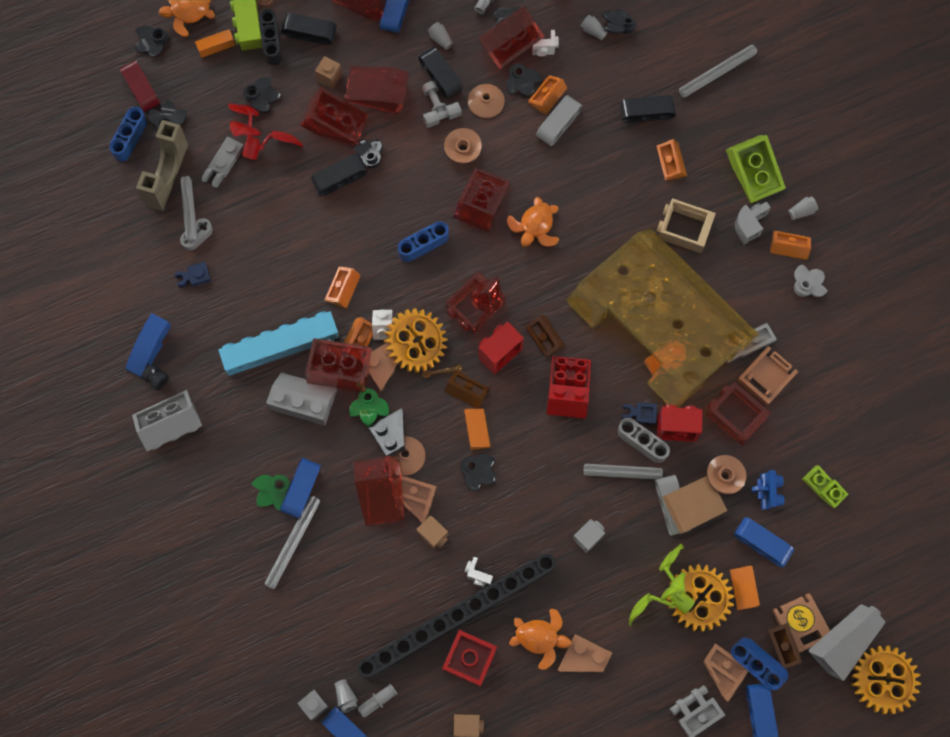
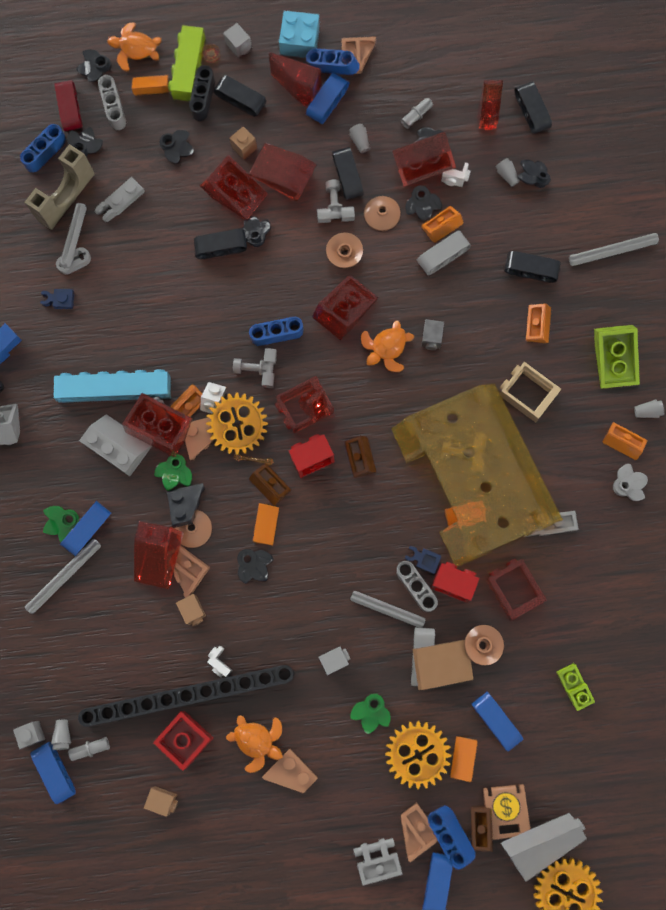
camera: 25 degrees right, 5 degrees up
(180, 63) = (111, 95): none -> light grey beam
(253, 144) = (150, 191): red plant -> none
(342, 287) = (189, 351): orange slope -> none
(424, 280) = (265, 367): none -> light grey bar
(569, 387) = (364, 512): red slope -> none
(575, 199) = (432, 334): none -> flat silver brick
(643, 577) = (370, 716): none -> green plate
(675, 591) = (393, 746): lime plant -> none
(747, 222) = (588, 407): light grey brick -> none
(767, 491) = (517, 673): blue hips -> none
(769, 374) = (560, 560): nougat container -> none

